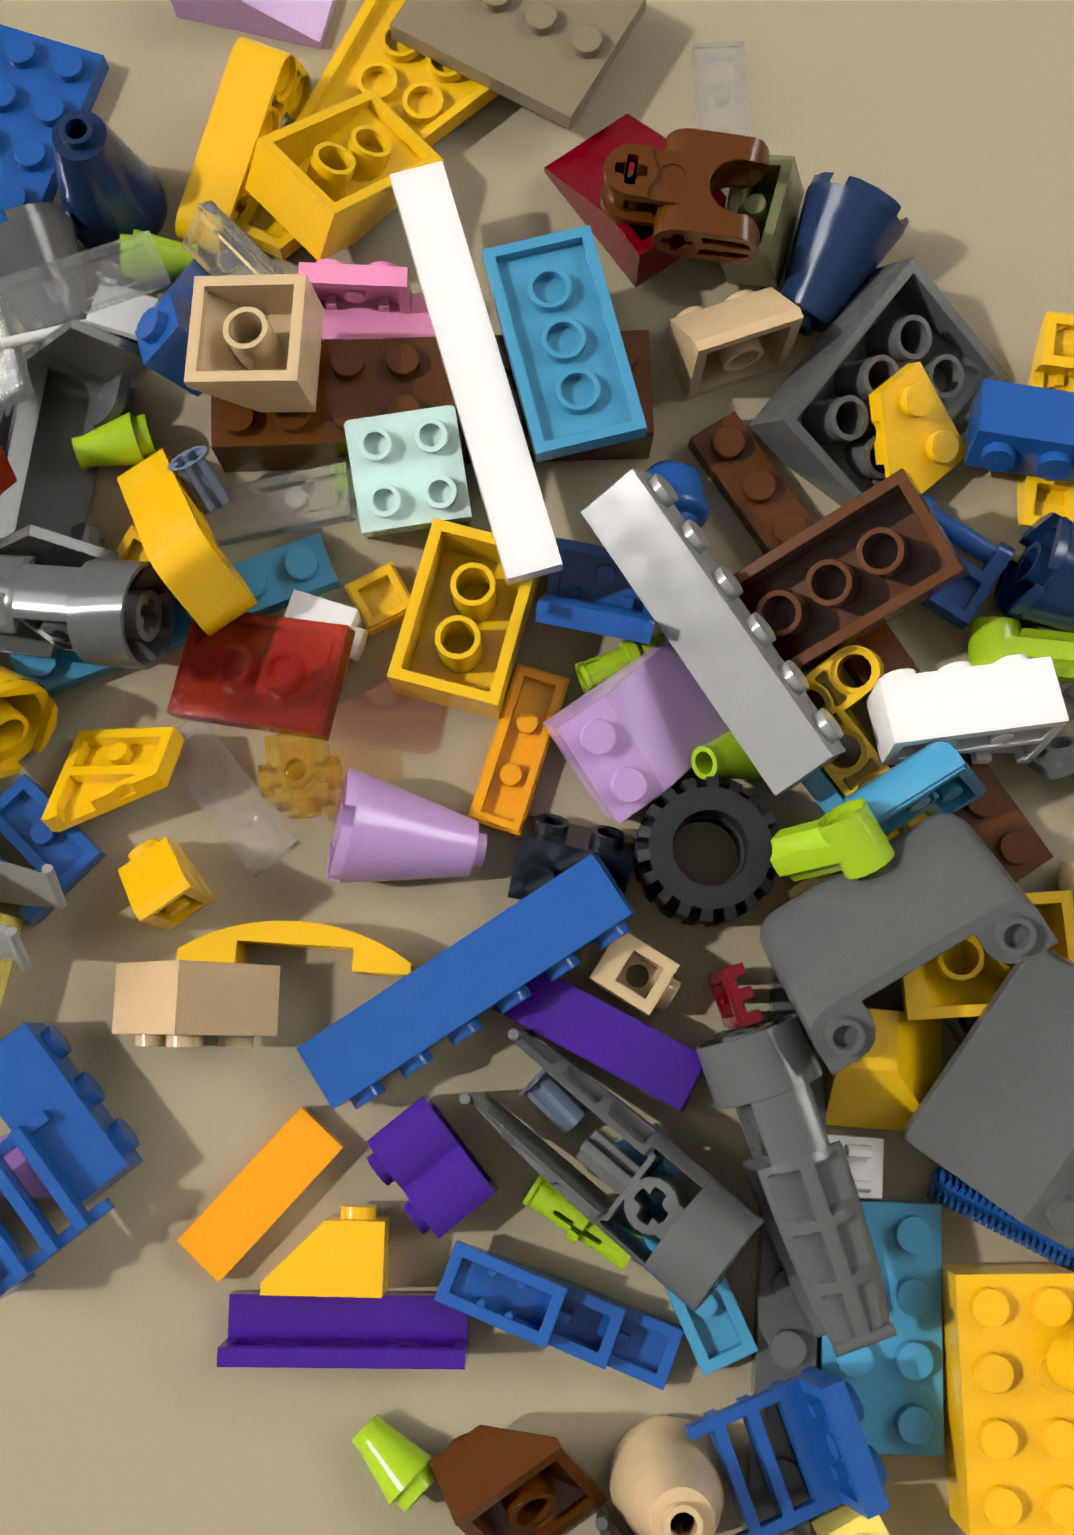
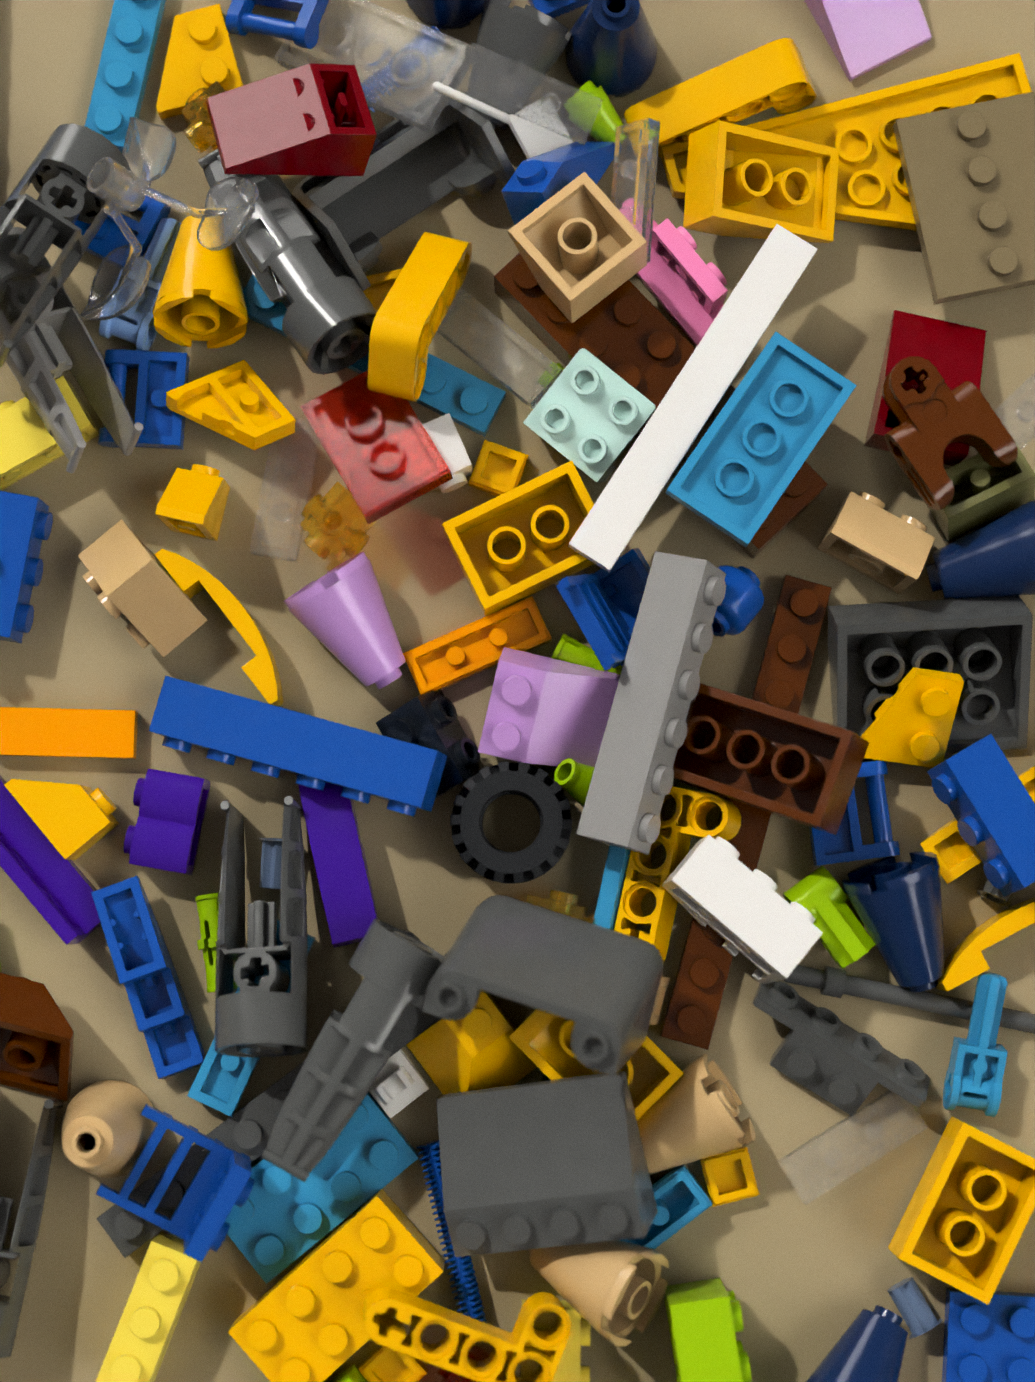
camera: 50 degrees right, 5 degrees up
(116, 443) = (449, 210): lime cone -> none
(200, 479) = (467, 287): sand blue piece -> none
(628, 952) = (381, 832): tan brick -> none
(733, 997) = (429, 916): dark red tile -> none
(840, 840) = (575, 895): lime piece -> none
(928, 780) = (667, 918): dark azure brick -> none

